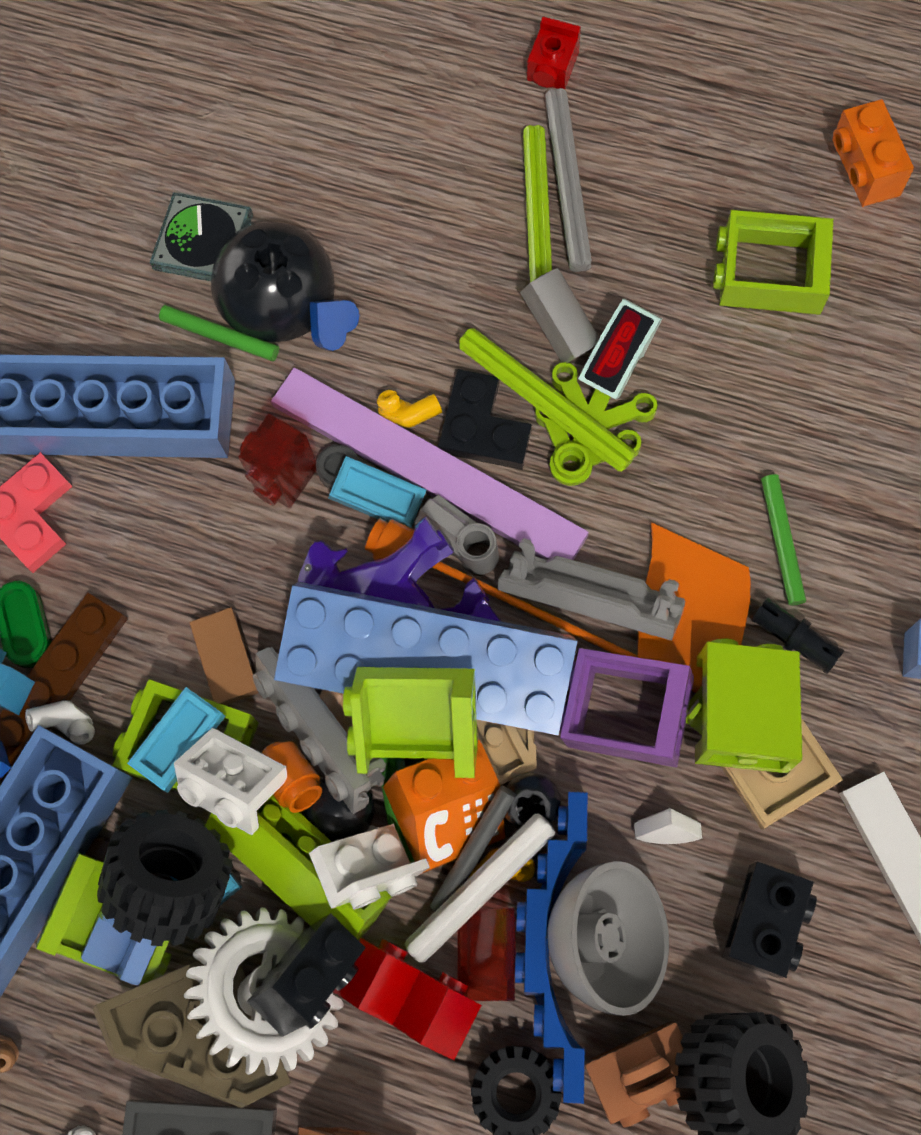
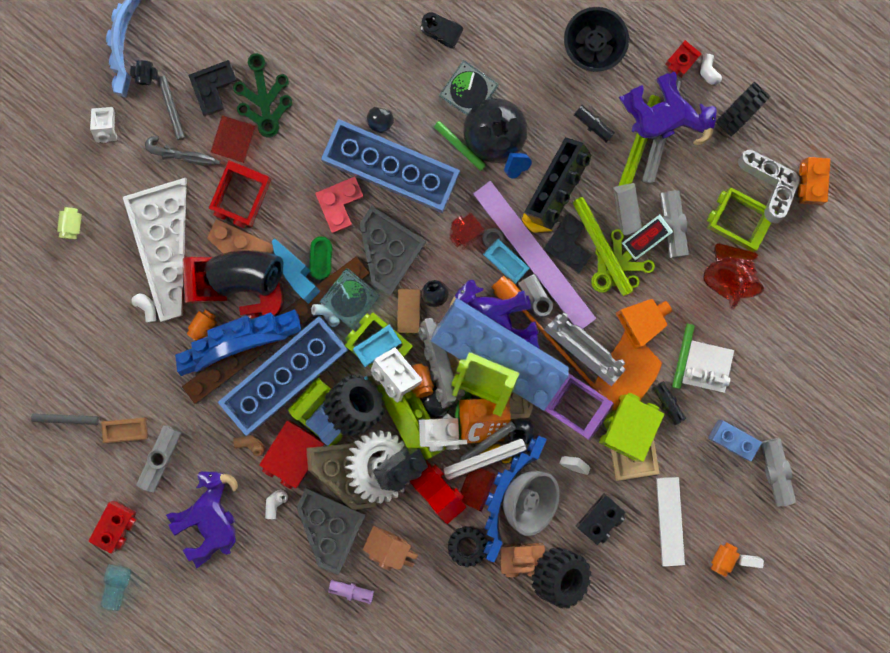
camera: 15 degrees right, 15 degrees up
(53, 335) = (380, 119): none -> black piece
(63, 1047) = (289, 454): none -> red brick
(96, 674) = (349, 298): none -> clear light blue tile
(119, 160) = (444, 30): none -> black piece
(146, 558) = (388, 249): none -> dark grey plate
(261, 602) = (434, 293): none -> black piece
(389, 67) = (596, 27): none -> black piece
(417, 319) = (558, 183): none -> black brick
(443, 208) = (594, 123): none -> black pin
(566, 138) = (669, 114): none -> dark purple animal
(607, 60) = (708, 72): none -> white arm
(674, 335) = (677, 222): none -> light grey piece
(677, 499) = (643, 320): none -> orange torso
(691, 78) = (742, 109): none -> black tyre
(808, 359) = (733, 274): none -> clear red helmet
(820, 174) = (780, 183): none -> light grey beam
(839, 540) = (708, 366): none -> white hinge

